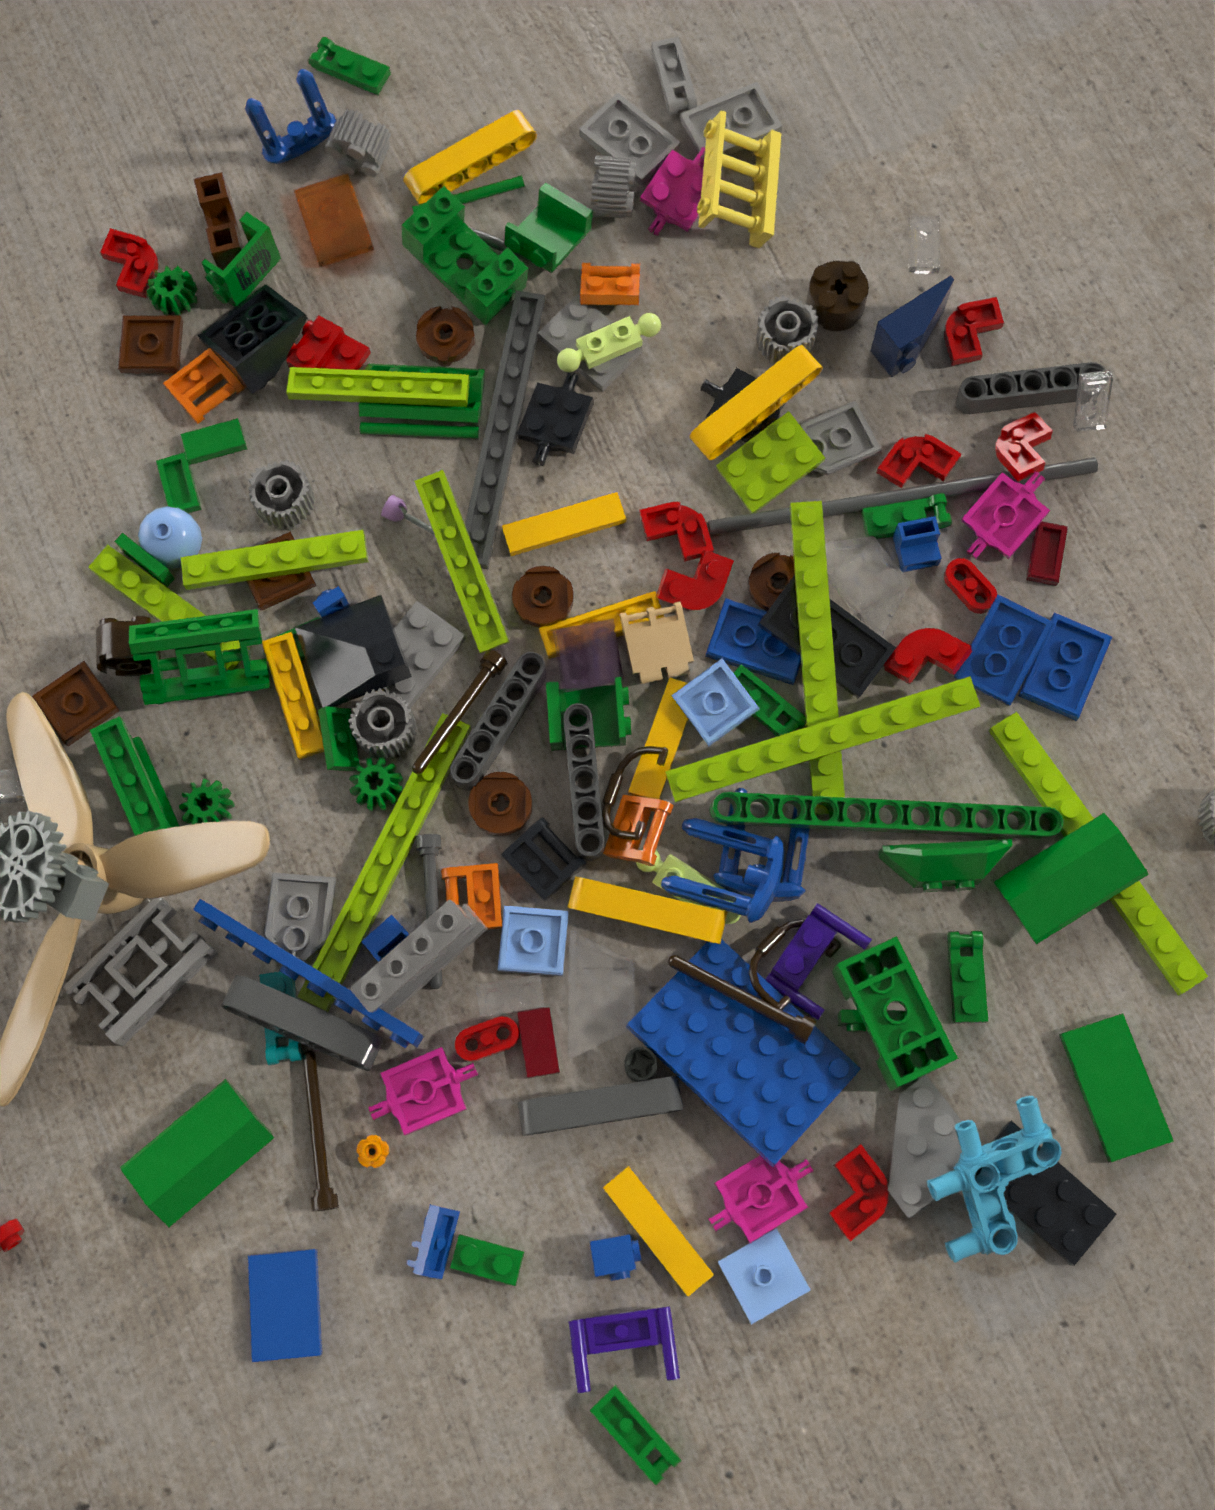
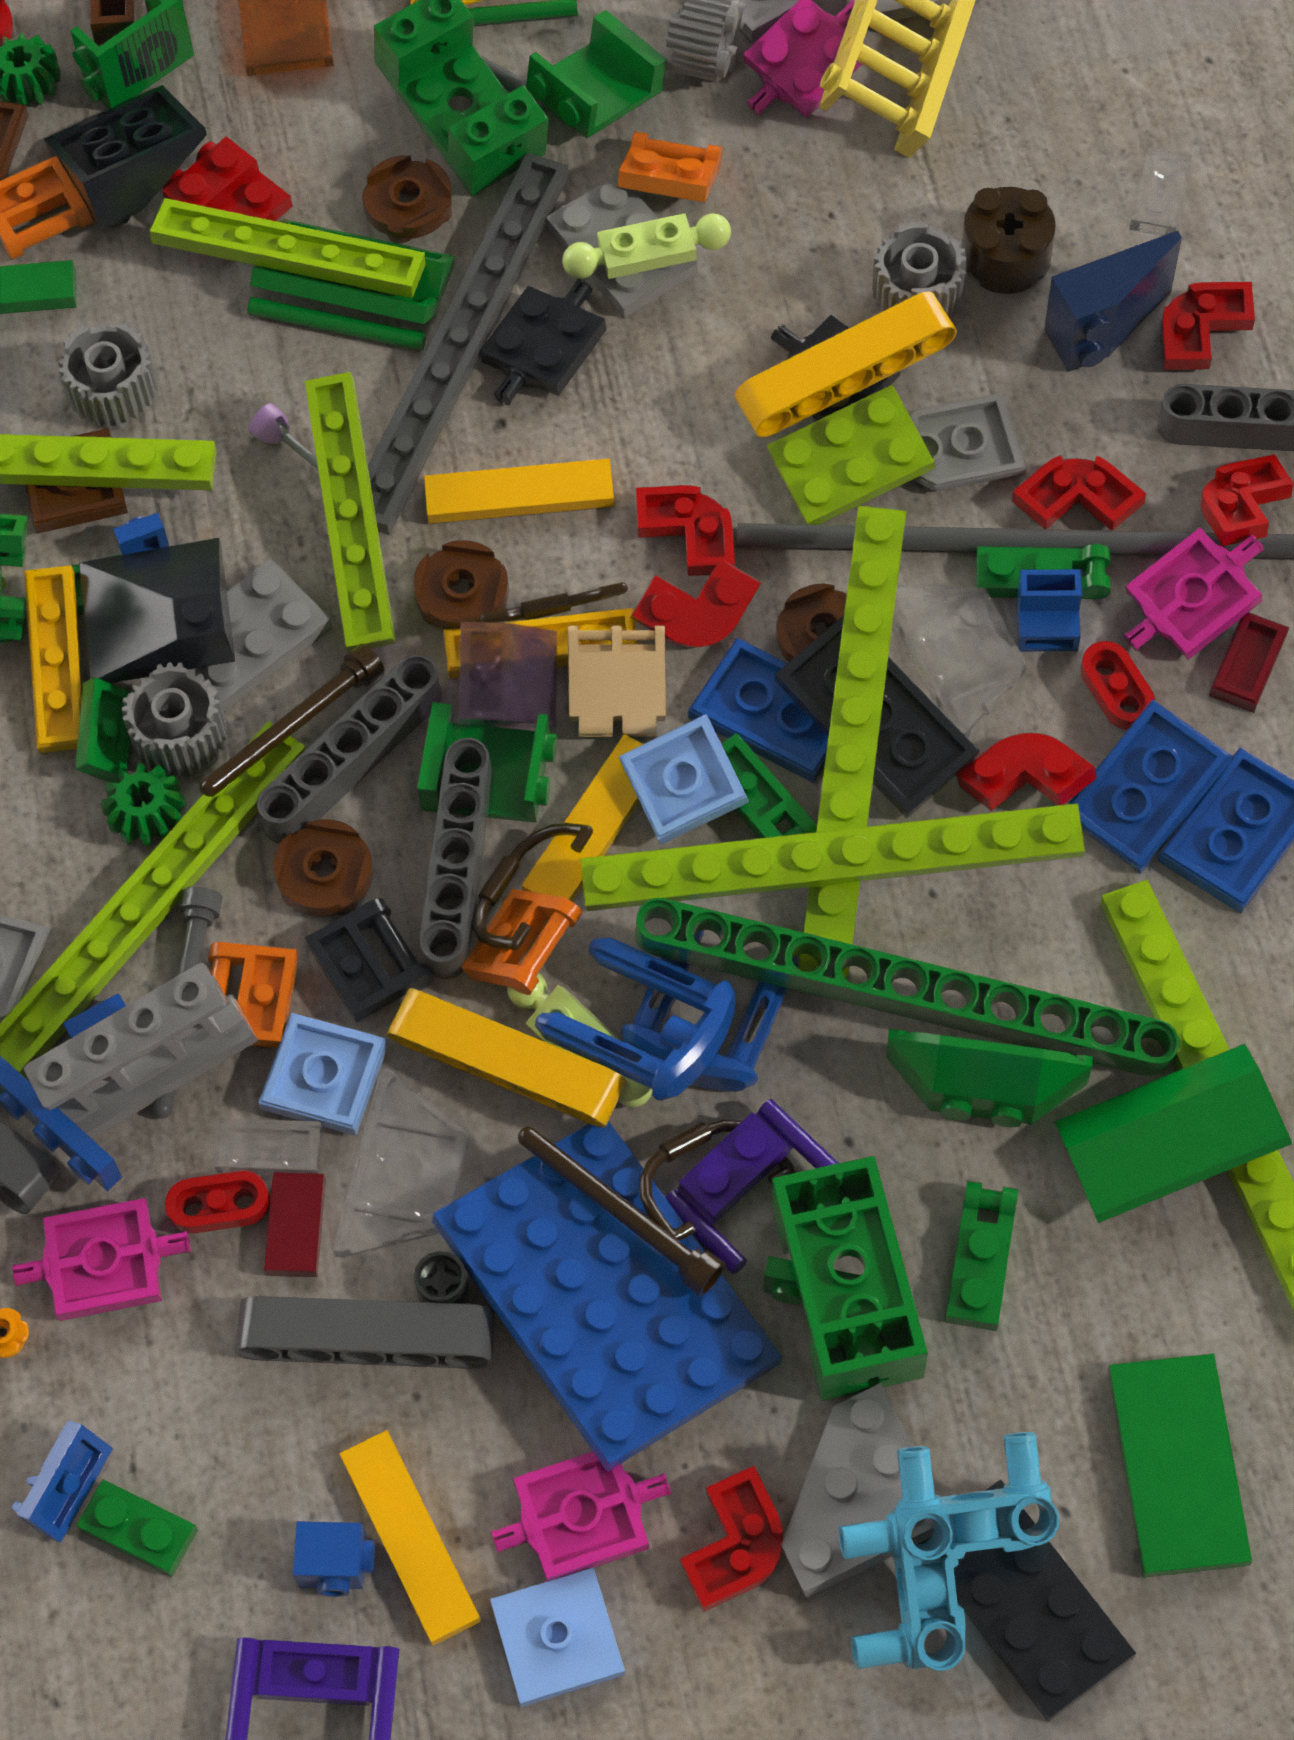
camera: 10 degrees right, 10 degrees down
(573, 617) = (552, 604): none -> dark brown piece

